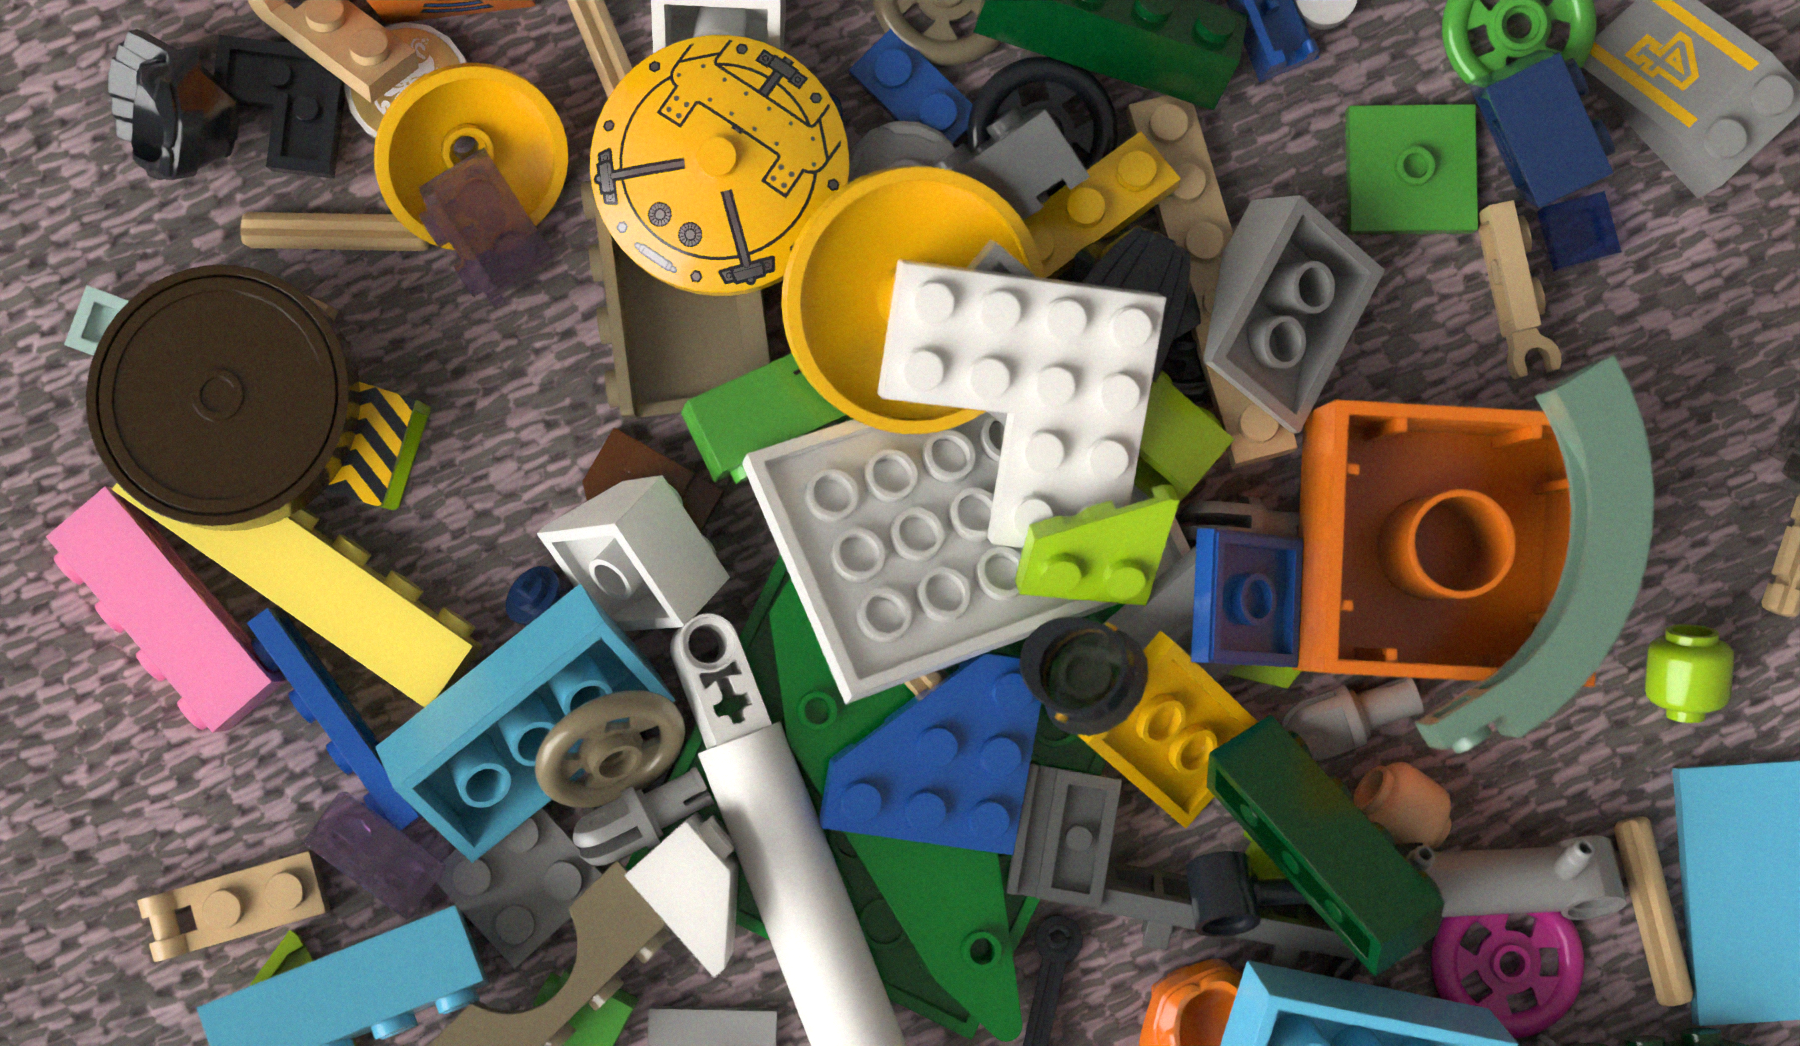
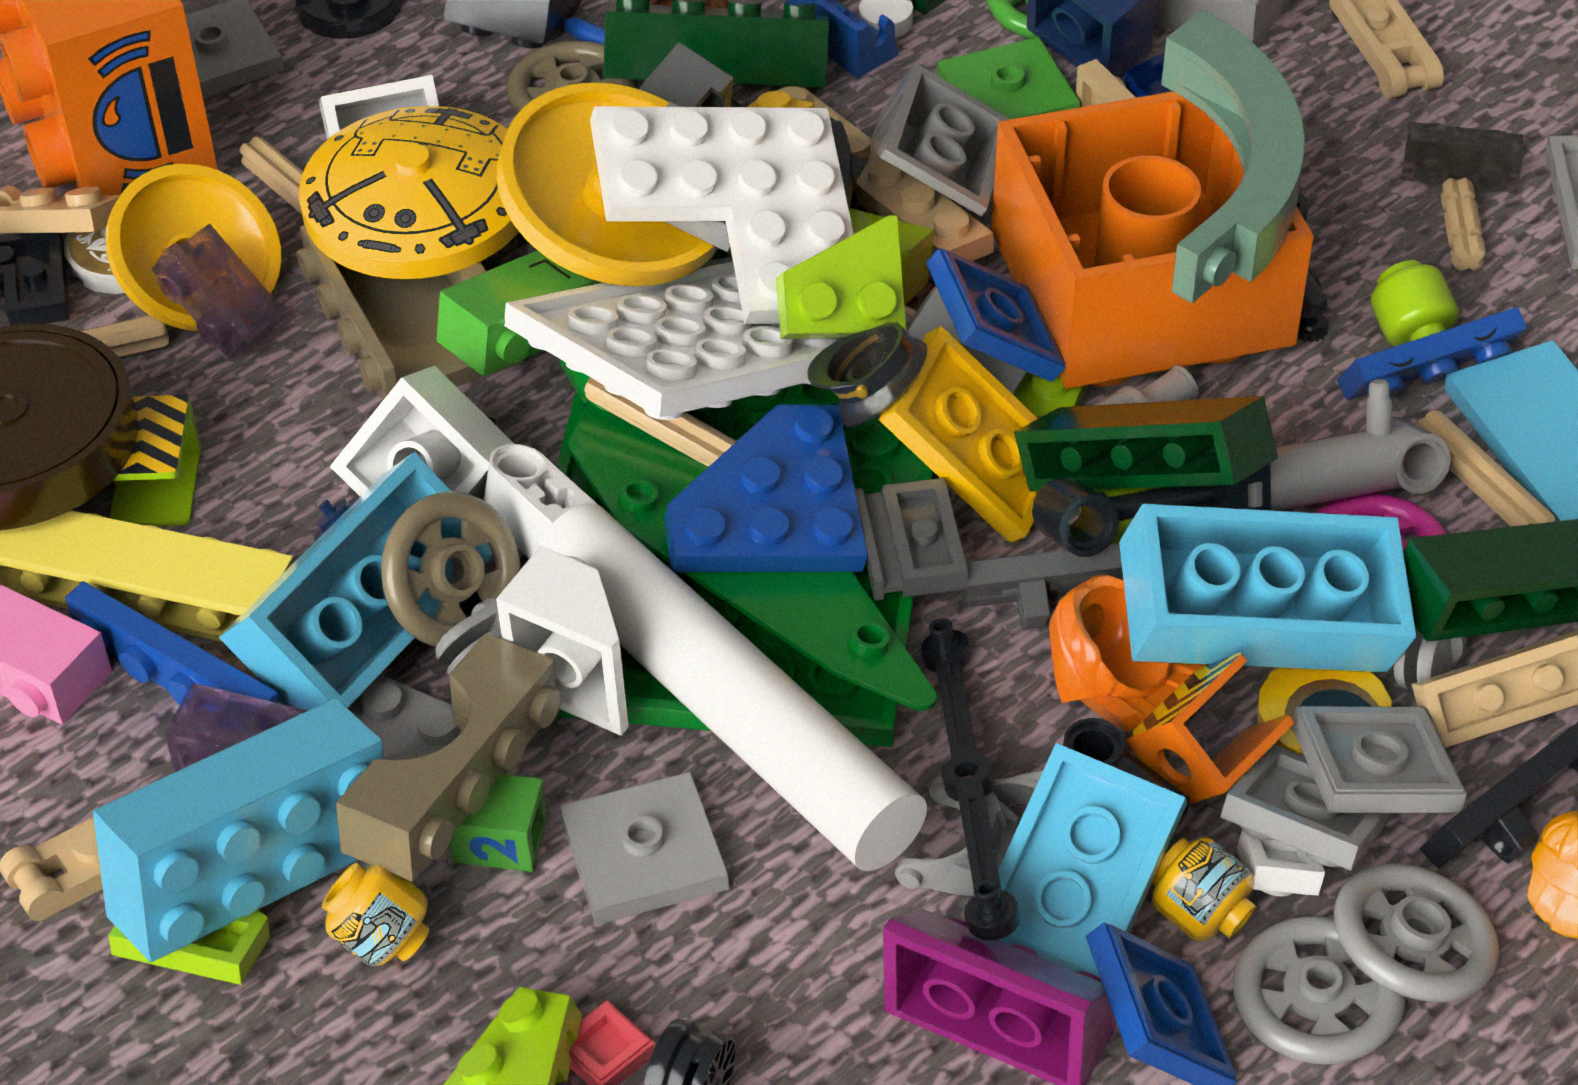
camera: 20 degrees left, 40 degrees down
(1676, 748) = (1434, 354): none -> blue plate

